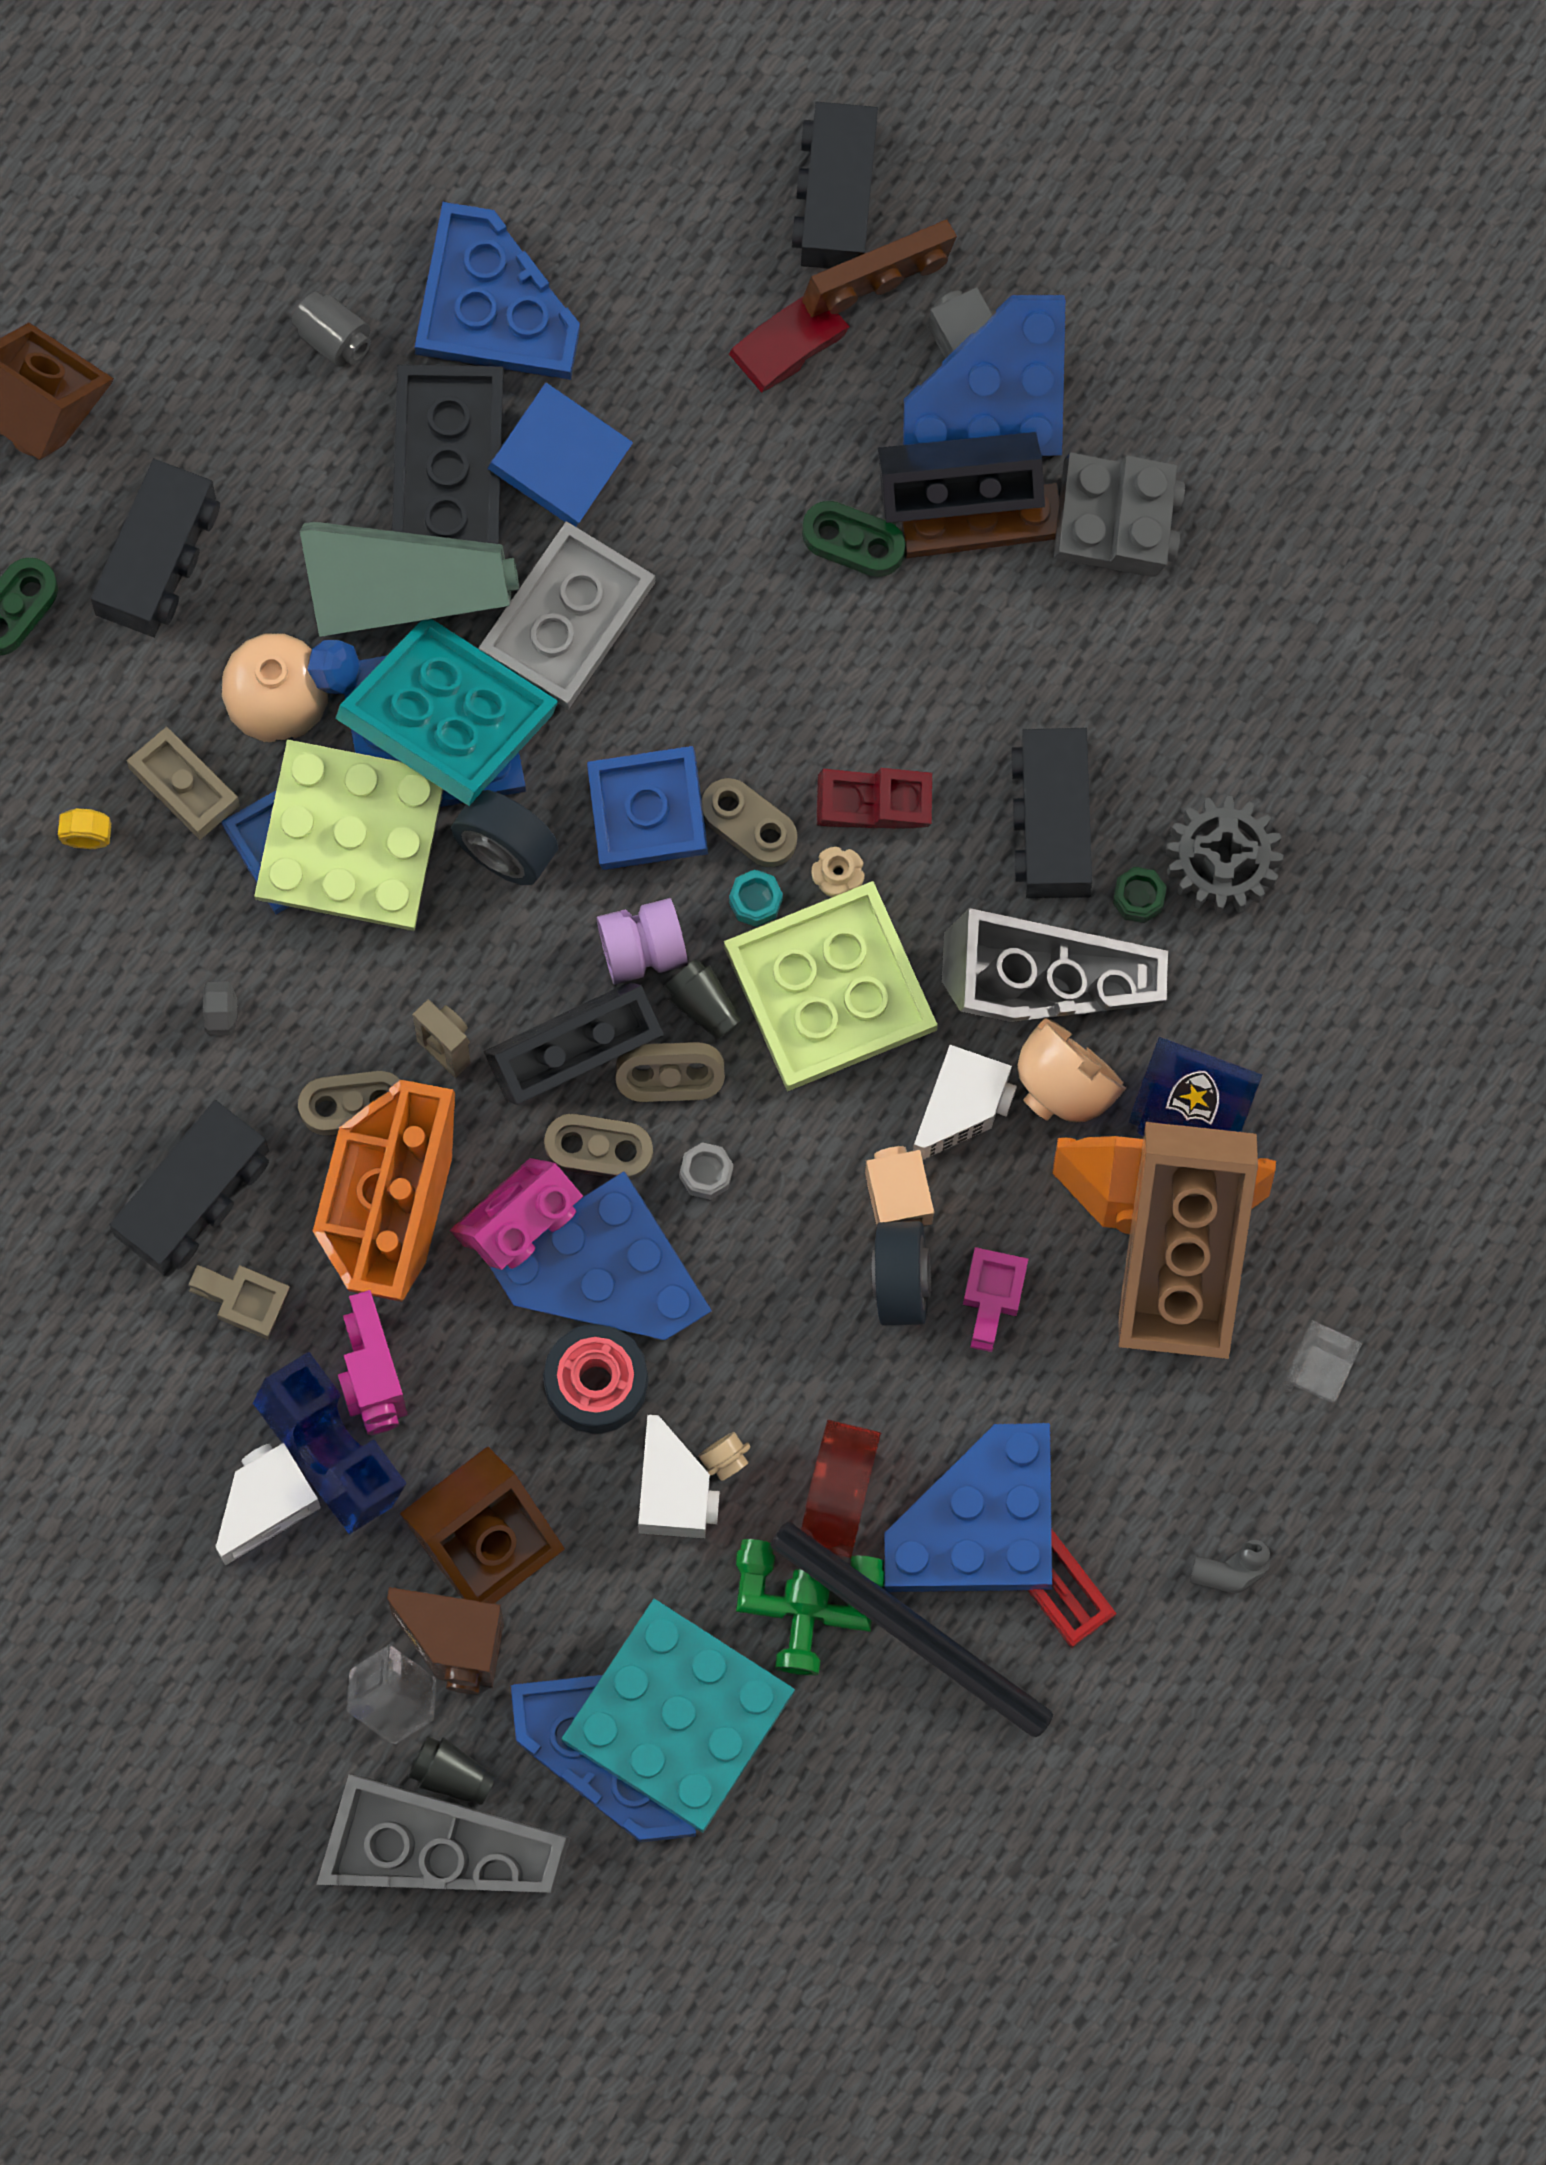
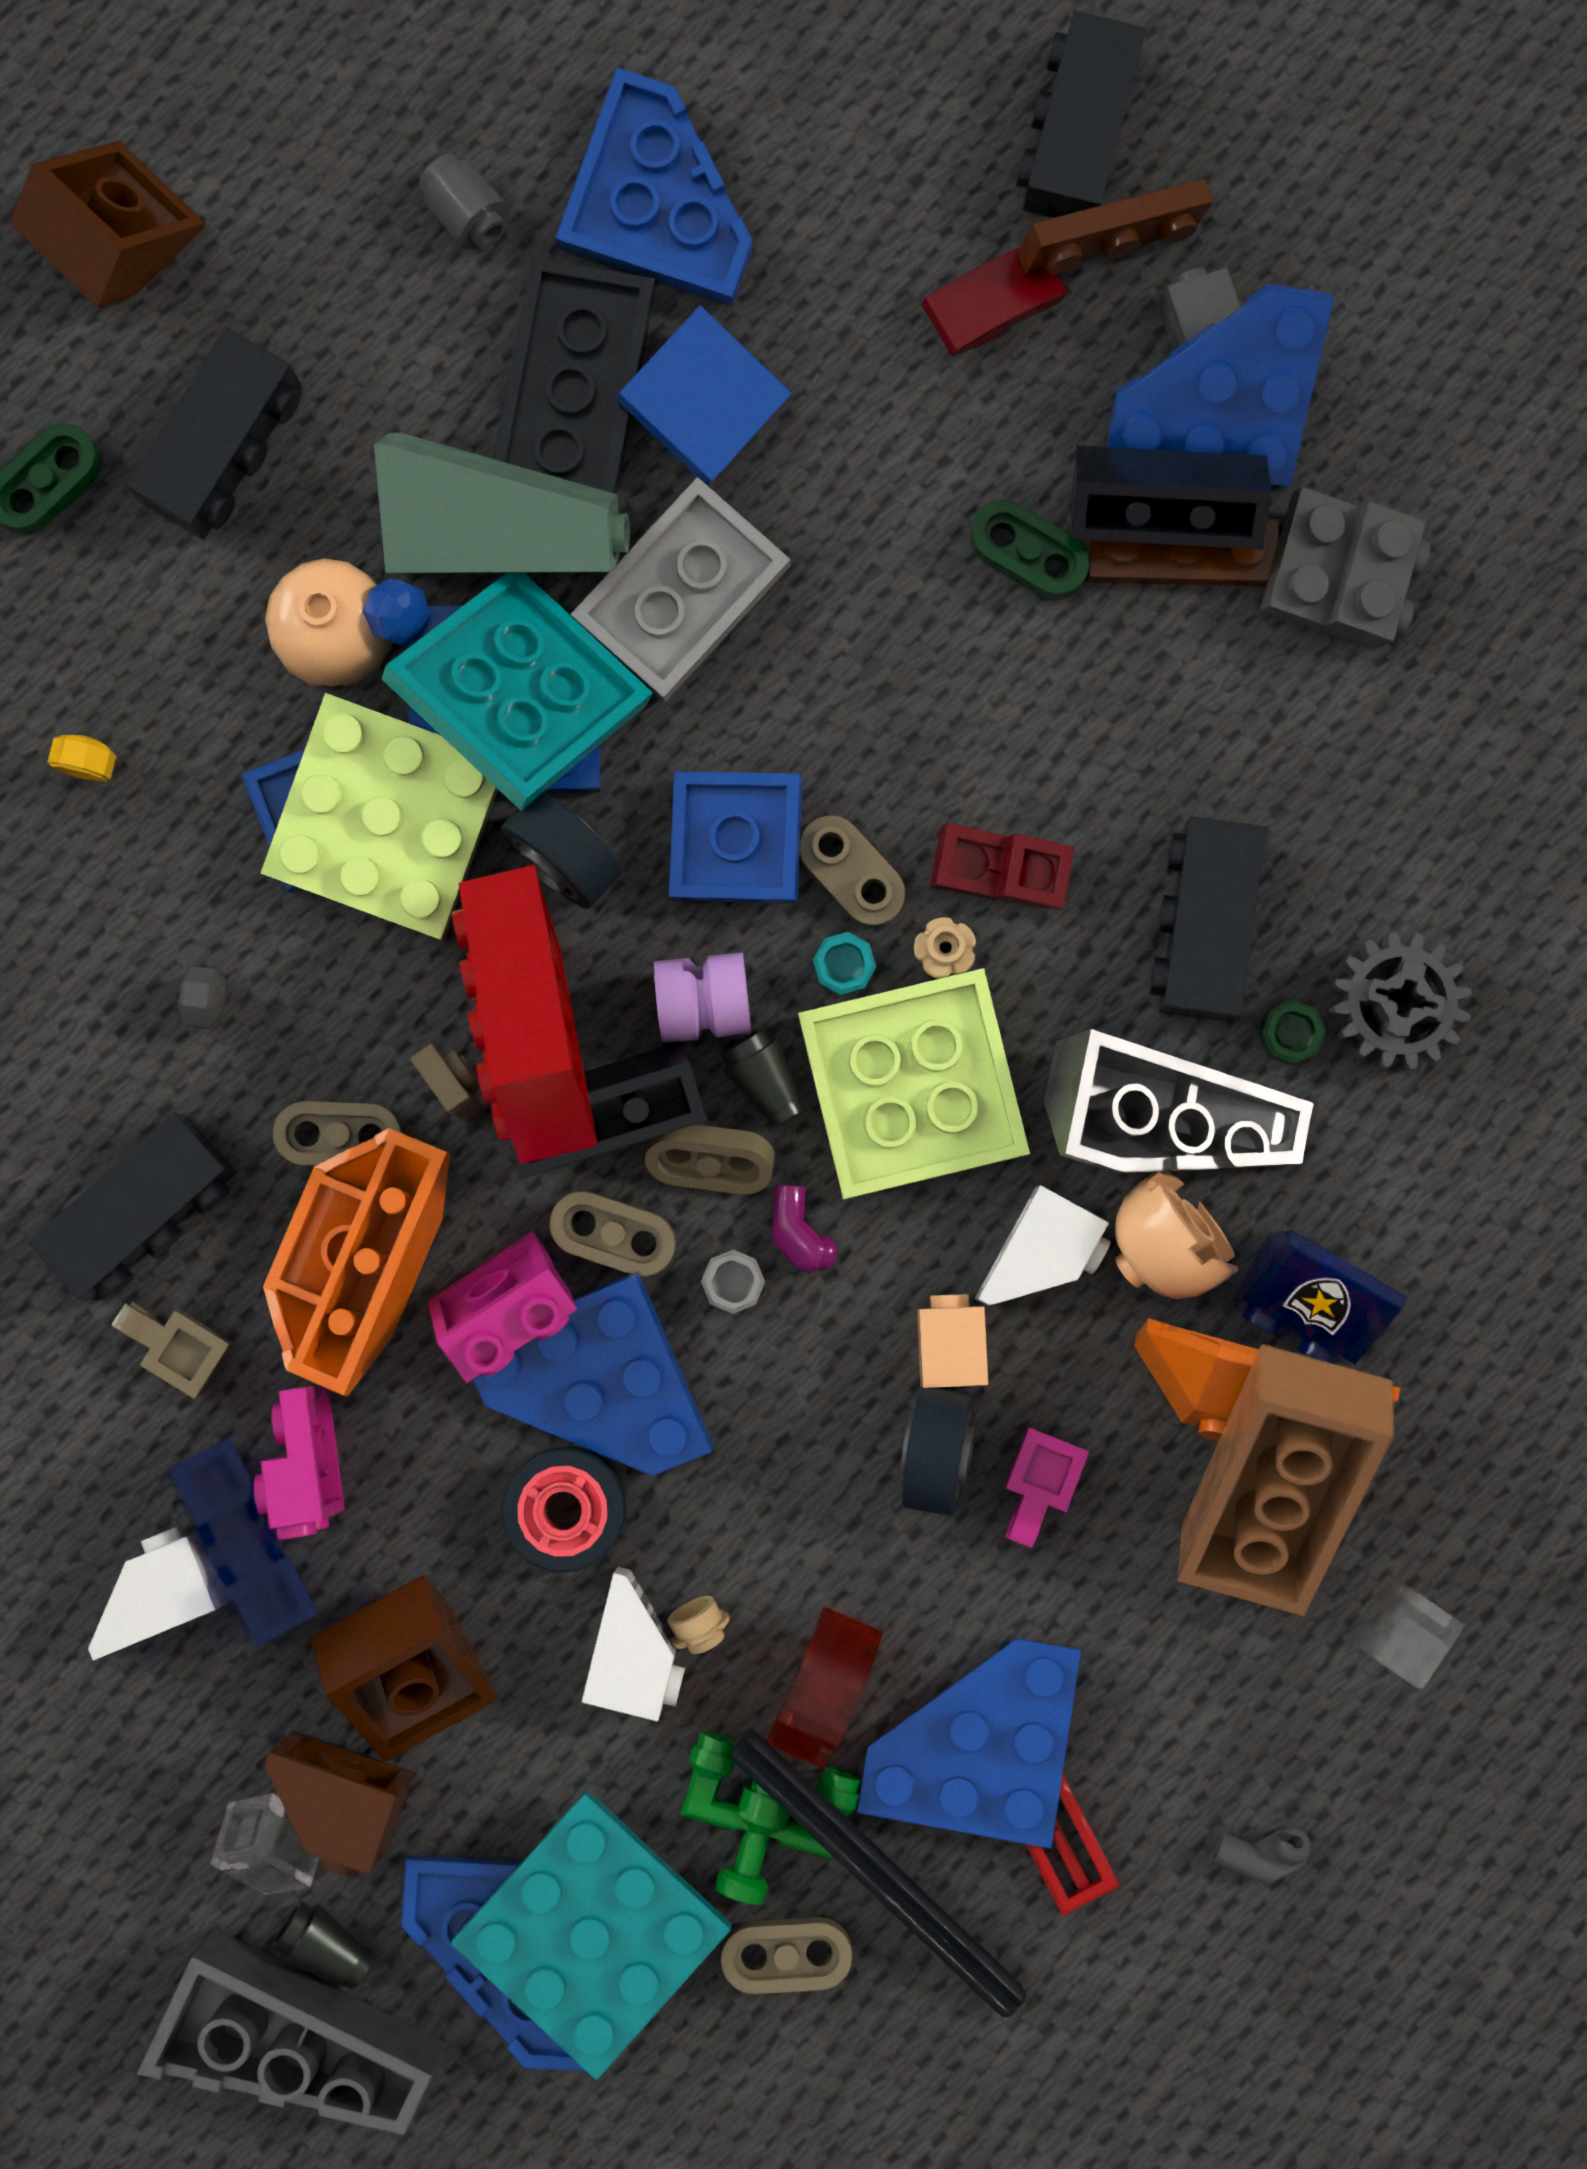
camera: 15 degrees right, 10 degrees up
(183, 783) = (204, 722): dark tan plate -> none
(500, 965) = (522, 1016): none -> red brick
(751, 1126) = (794, 1236): none -> magenta arm
(844, 1712) = (787, 1961): none -> dark tan plate

